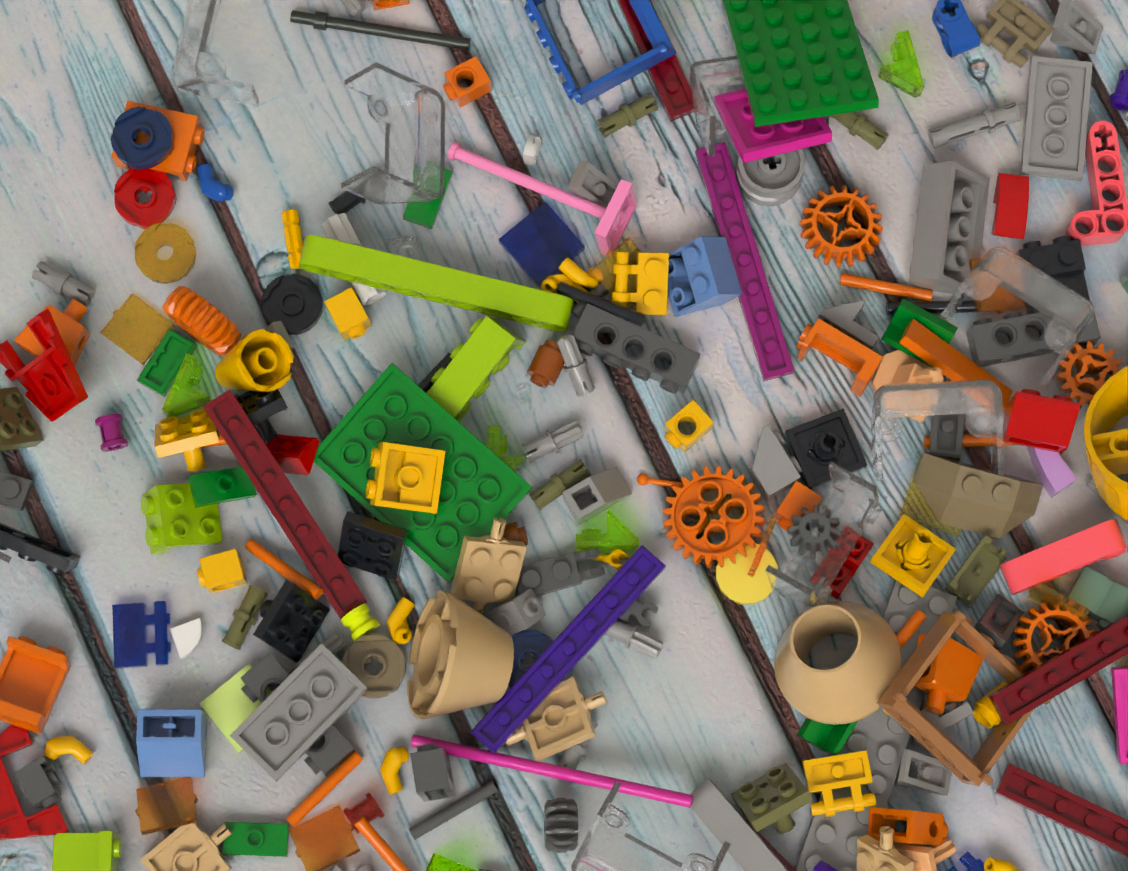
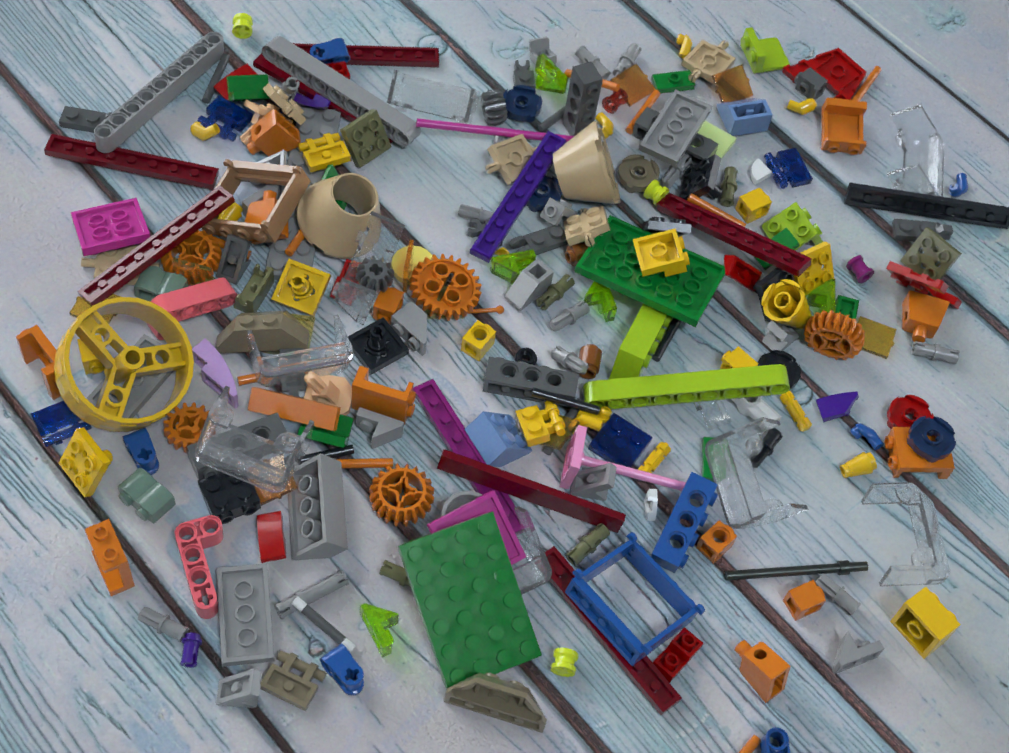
camera: 155 degrees right, 20 degrees down
(165, 270) = (872, 395): clear yellow tile -> none
(236, 232) = (836, 405): none -> dark purple slope
(244, 143) = (859, 465): none -> yellow cone
(398, 623) = (631, 199): yellow arm -> none
(479, 143) = (694, 488): none -> blue brick
(503, 820) = (531, 107): none -> dark blue plate
(507, 209) = (655, 457): none -> yellow axle
(630, 381) = (526, 353): none -> black plate
(683, 186) = (530, 491): none -> dark red tile
(968, 82) = (323, 624): none -> dark grey bar
(1040, 420) = (226, 369): red slope -> none

